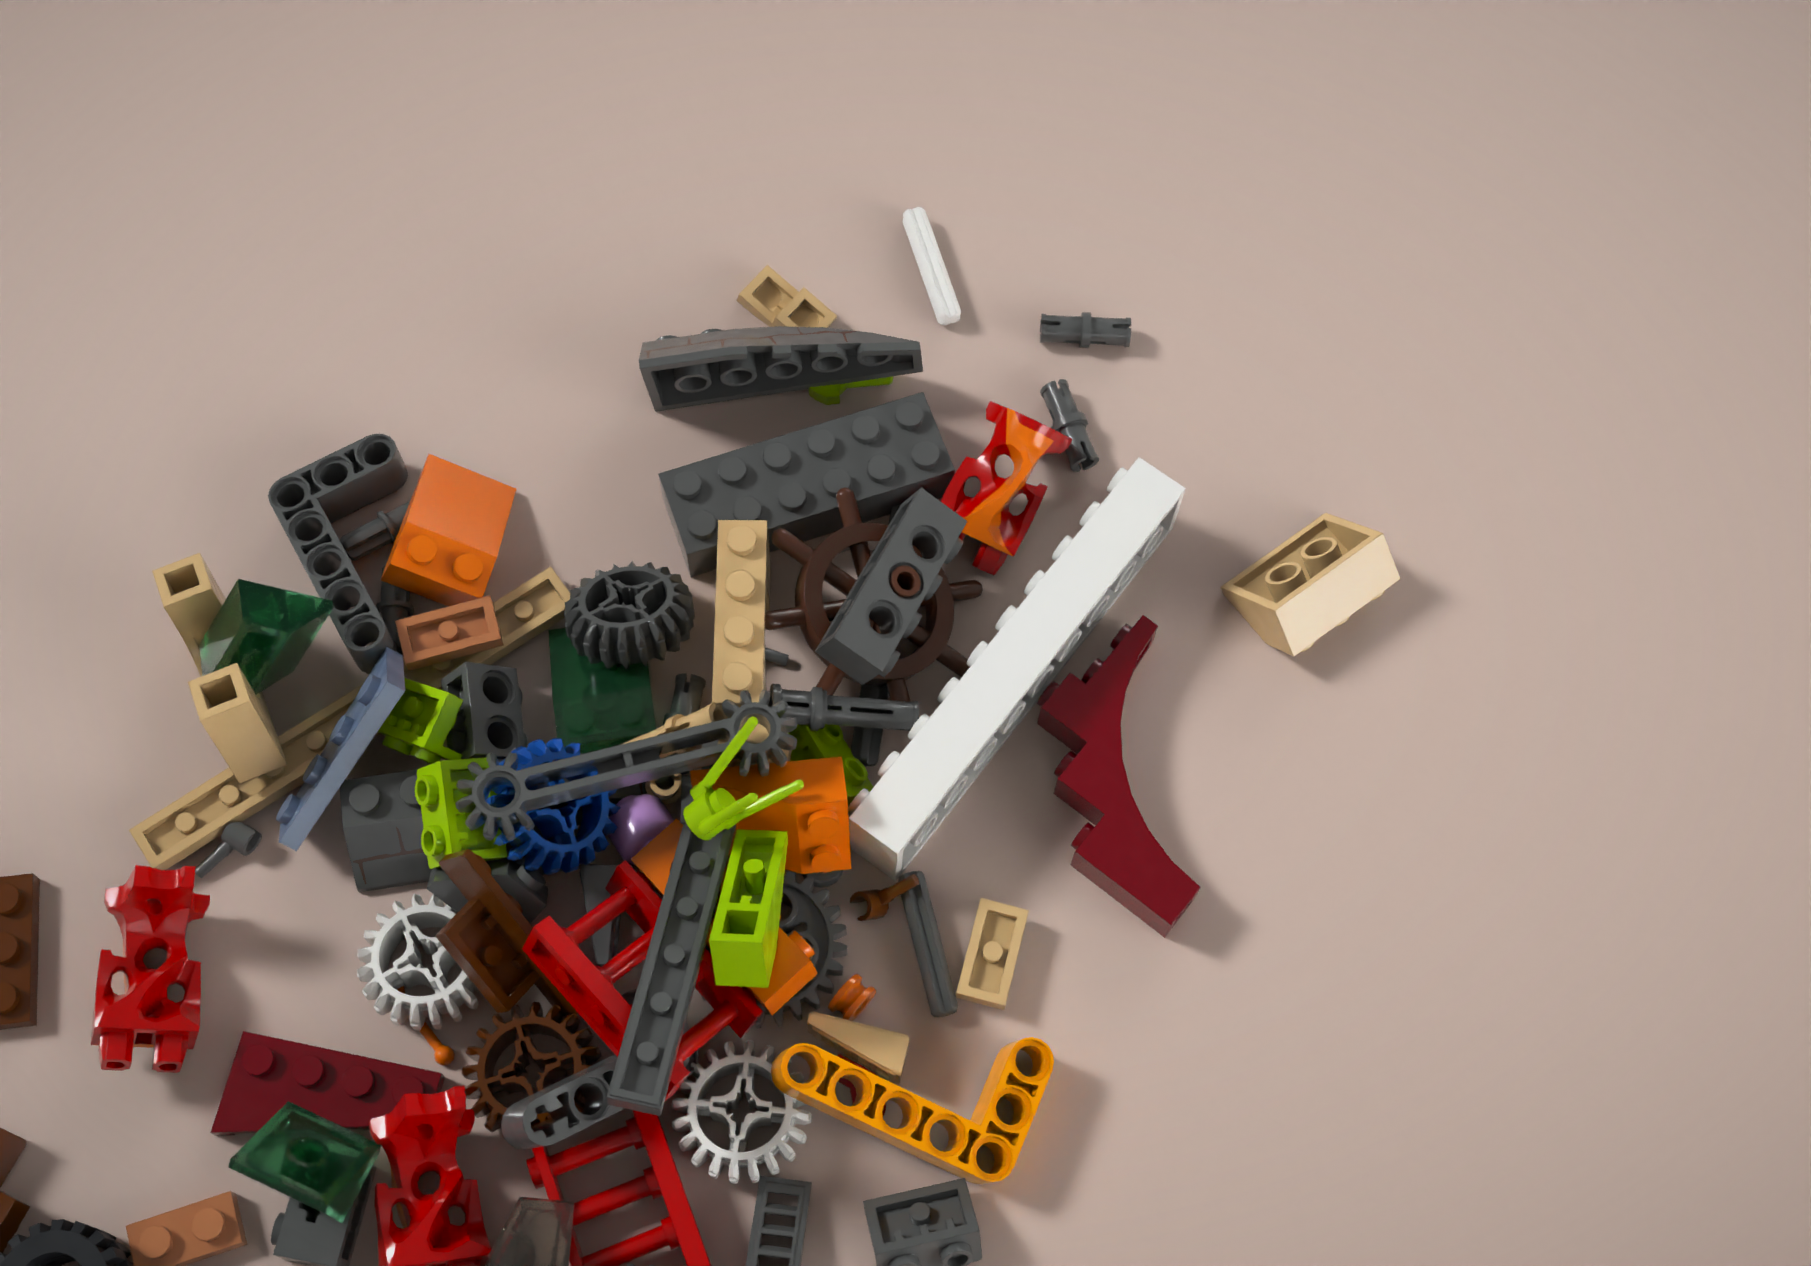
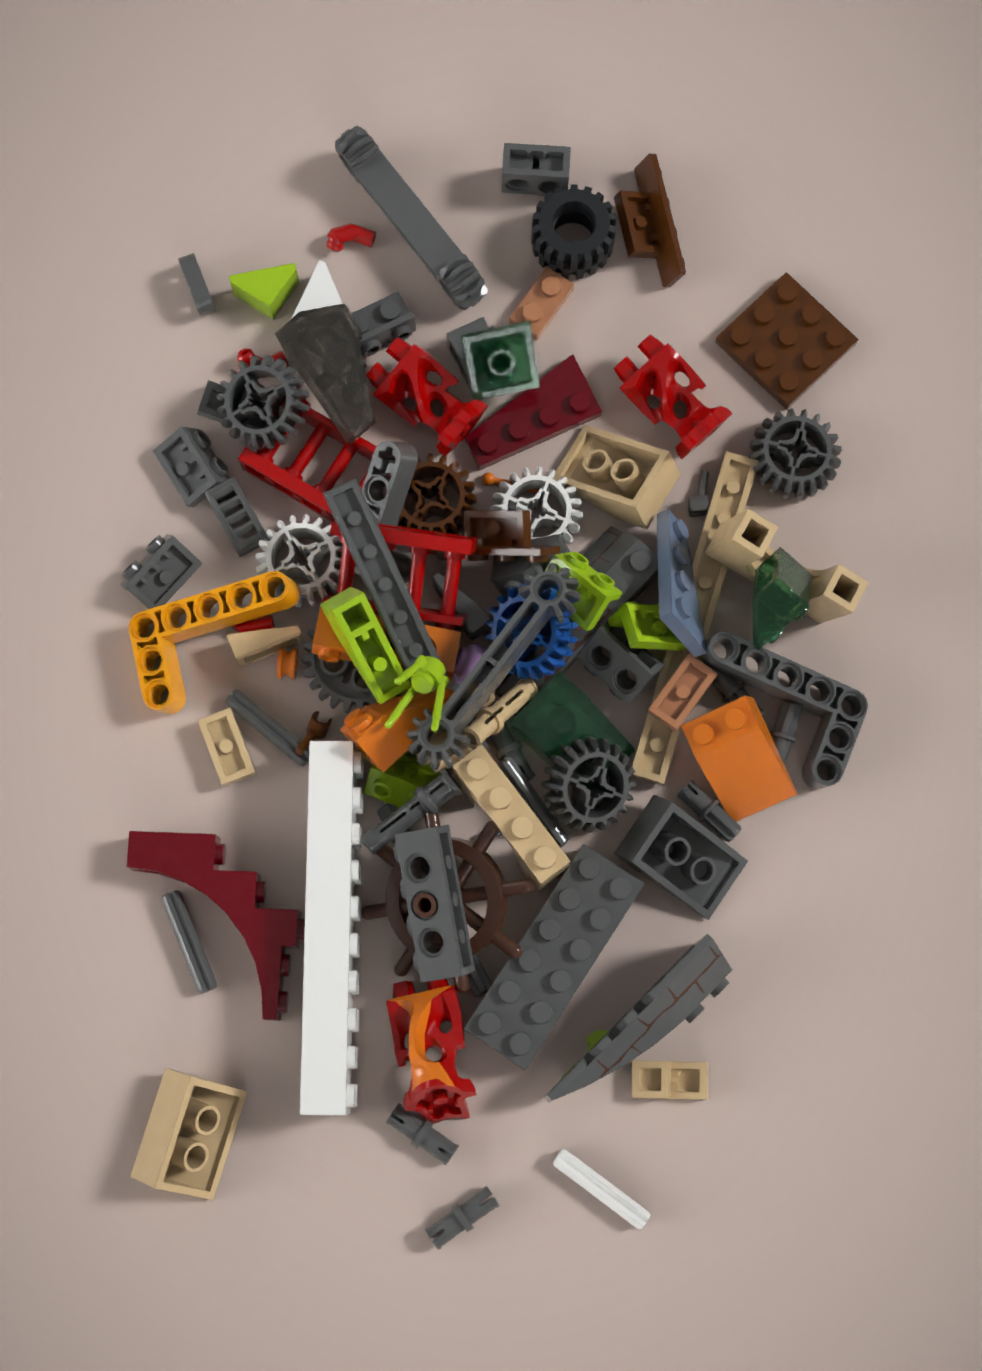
camera: 145 degrees right, 10 degrees up
(45, 828) = (808, 455): none -> dark grey gear
(296, 939) = (619, 475): none -> tan slope
(529, 512) = (709, 811): none -> dark grey axle
(598, 491) = (681, 856): none -> dark grey slope
(702, 647) = (533, 800): none -> dark grey axle
(1181, 775) = (189, 941): none -> dark grey axle

